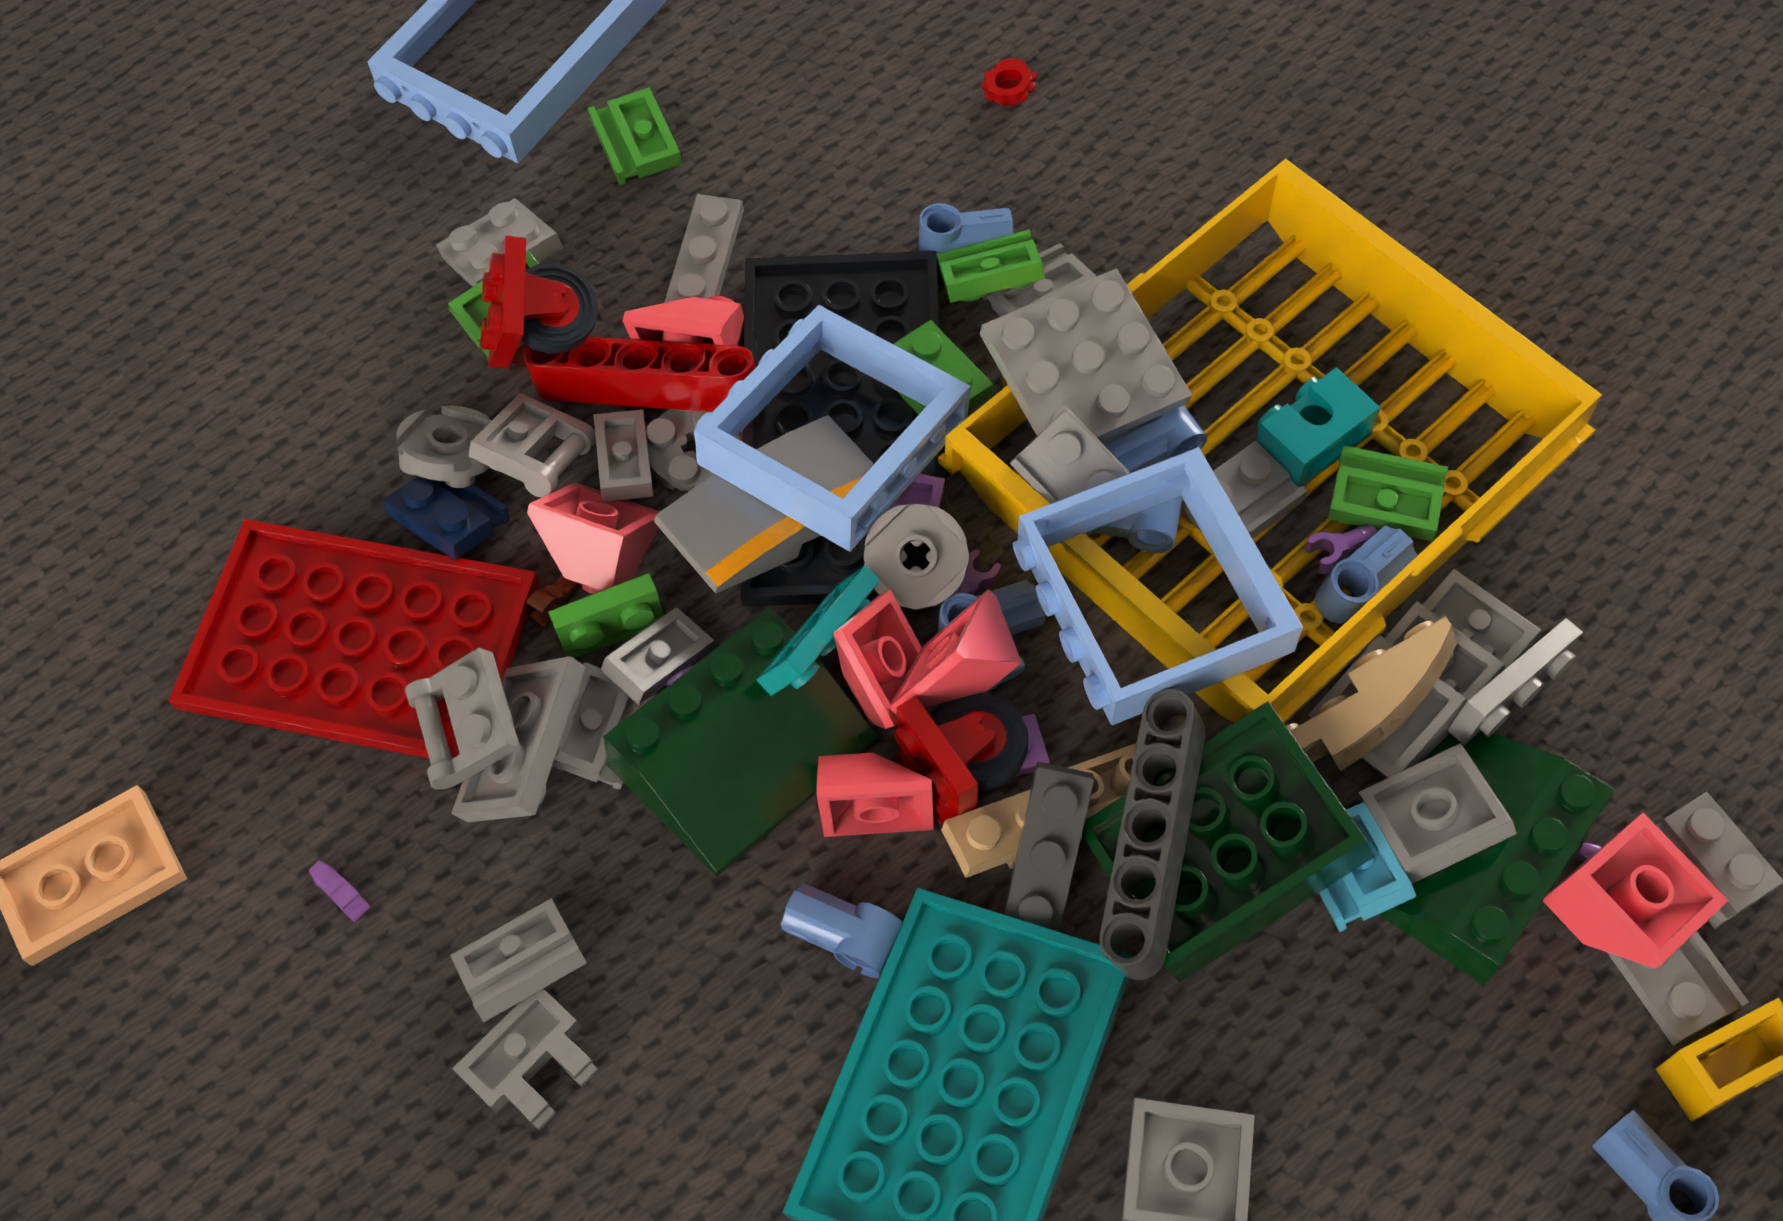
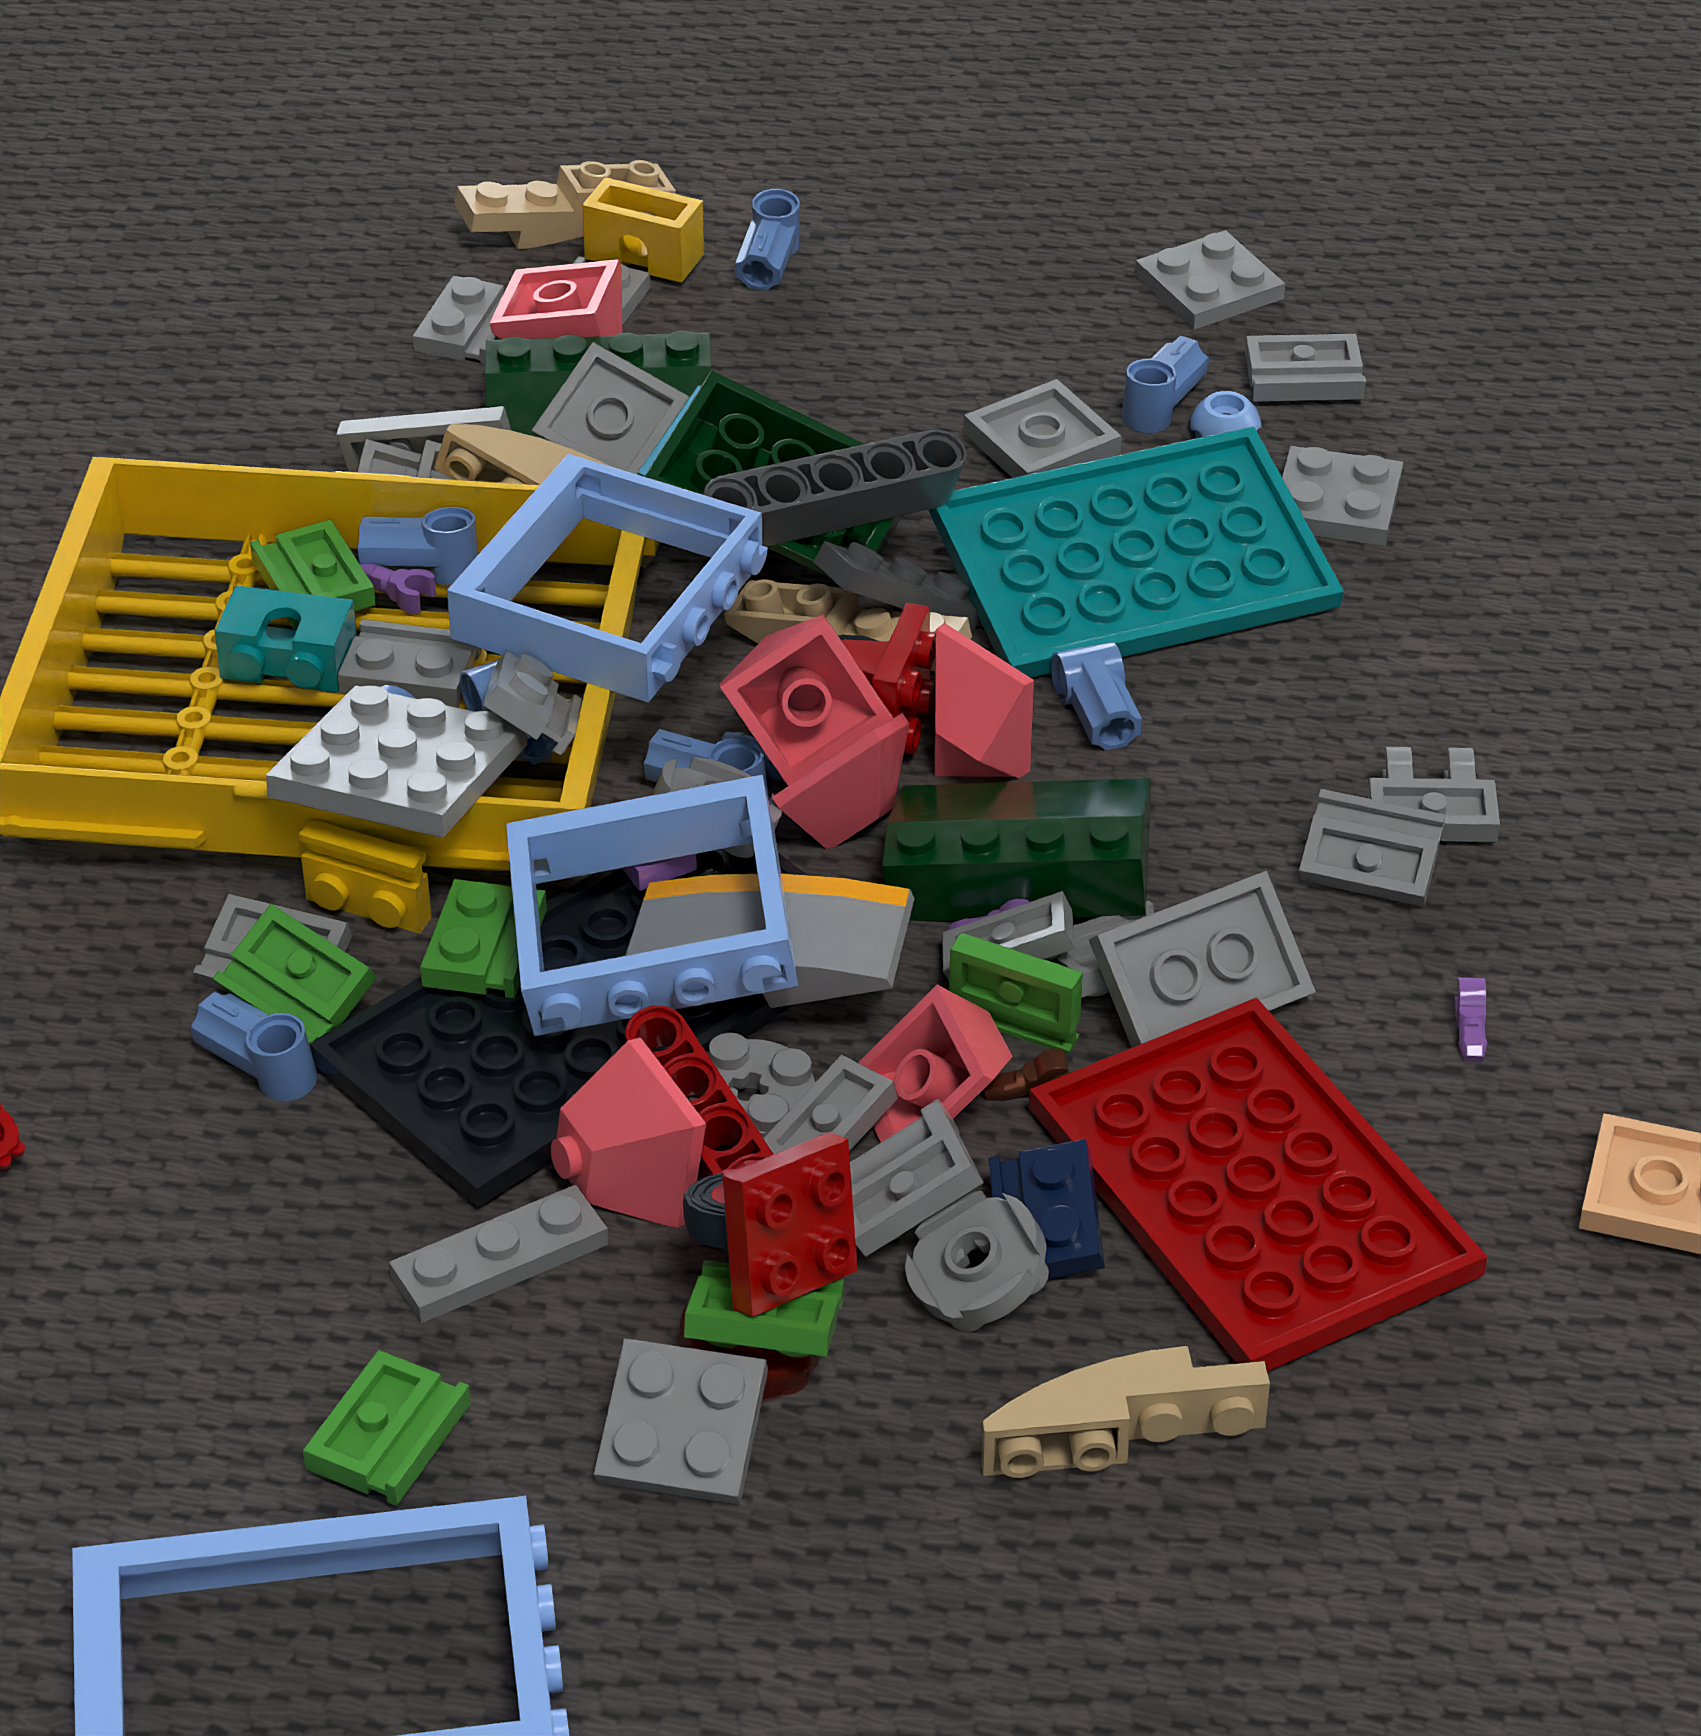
camera: 135 degrees left, 20 degrees down
(299, 429) = (1097, 1409): none -> tan slope
(476, 713) = (1218, 985): light grey plate -> none
(796, 661) = (873, 794): teal plate -> none

